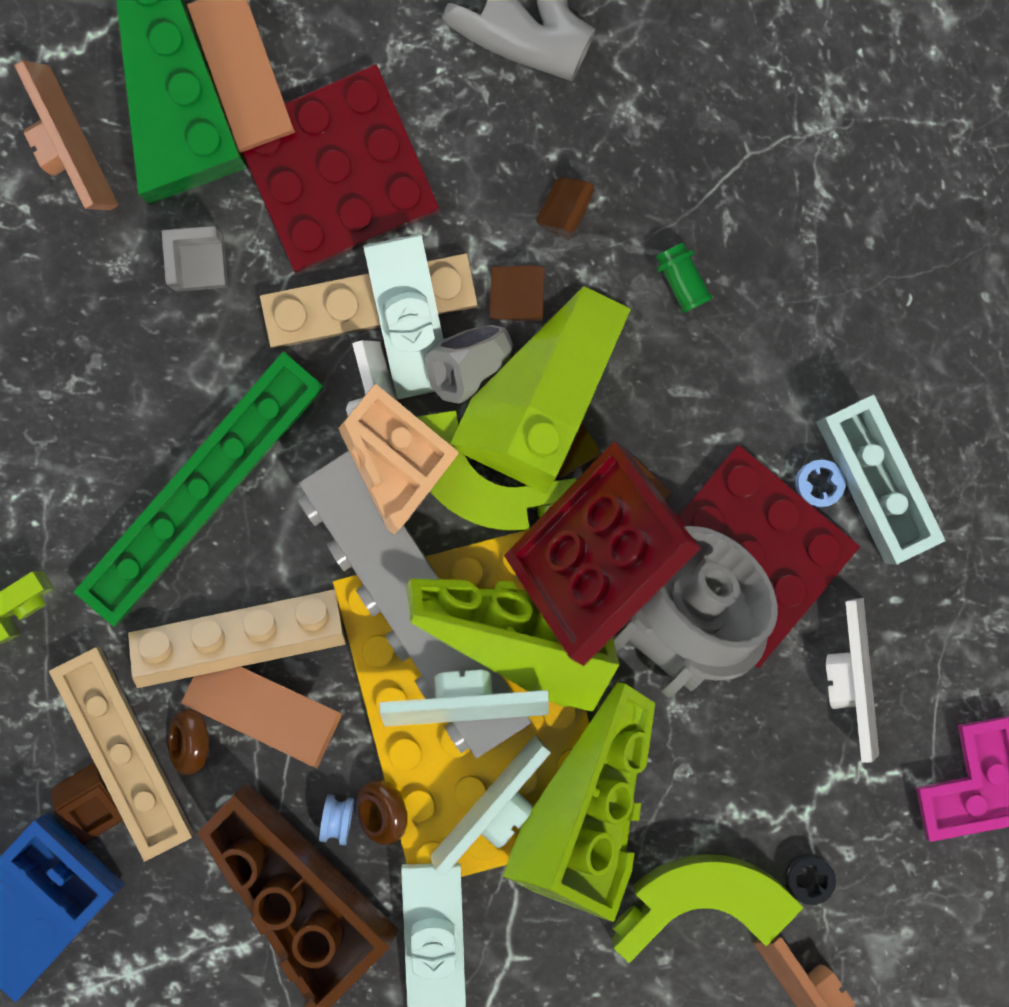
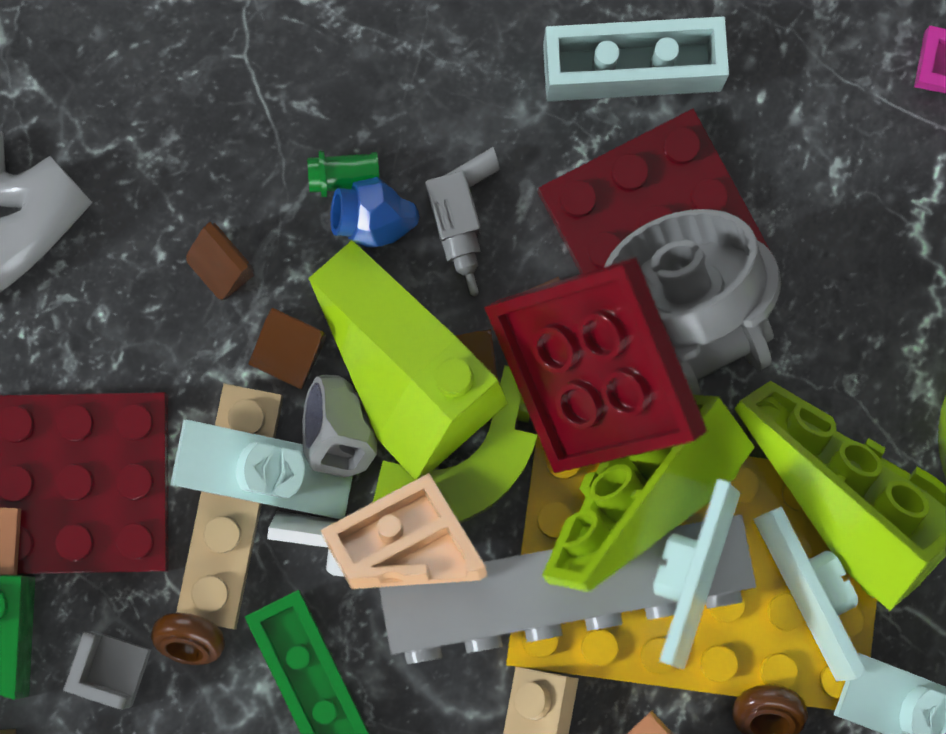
camera: 70 degrees left, 5 degrees down
(247, 313) = (187, 638): none -> reddish brown piece
(658, 315) = (372, 213): none -> blue rock
(689, 385) = (457, 215): none -> light grey piece
(836, 479) = (612, 105): light blue bush -> none
(853, 680) = (826, 171): white piece -> none

